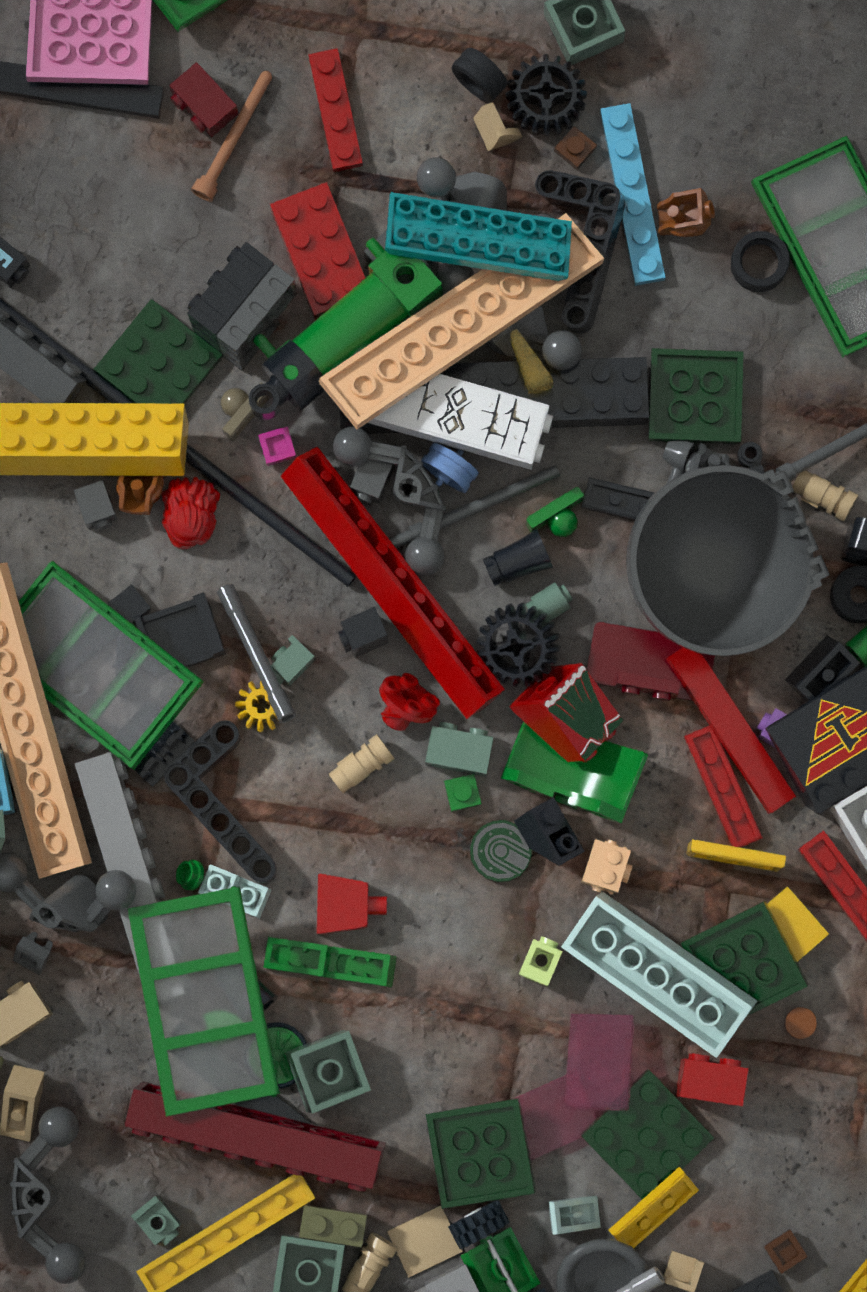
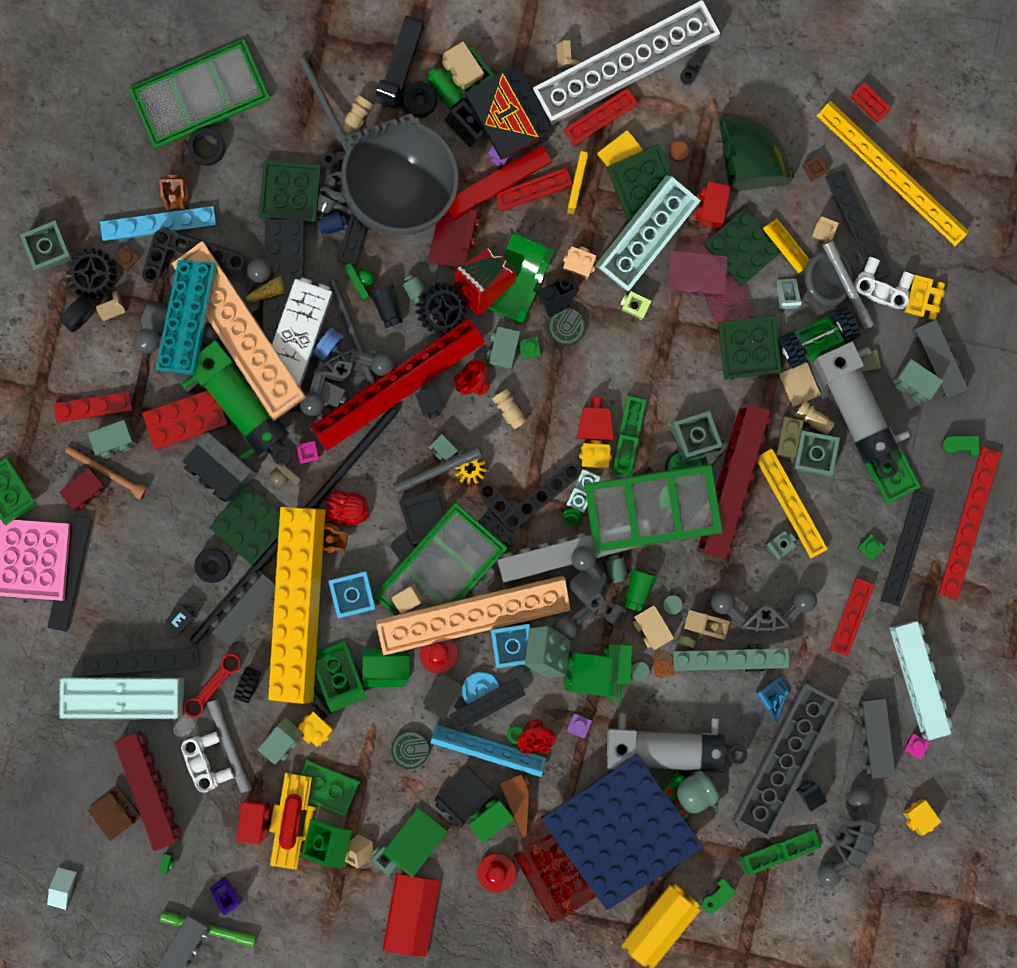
camera: 90 degrees left, 5 degrees up
(45, 613) = (407, 599): none -> tan panel
(50, 527) = (352, 594): none -> medium azure brick
(53, 1045) = (672, 604): none -> sand green tile
(76, 988) = (639, 589): none -> green plant
(91, 289) = (201, 565): none -> black tyre
(96, 506) = (340, 566): dark grey brick -> none
(108, 950) = (616, 568): none -> sand green brick
(284, 140) = (112, 439): none -> sand green brick
(292, 907) = (595, 455): none -> yellow head
(648, 466) = (332, 222): none -> dark blue brick
(801, 1145) = (752, 155): none -> dark green brick

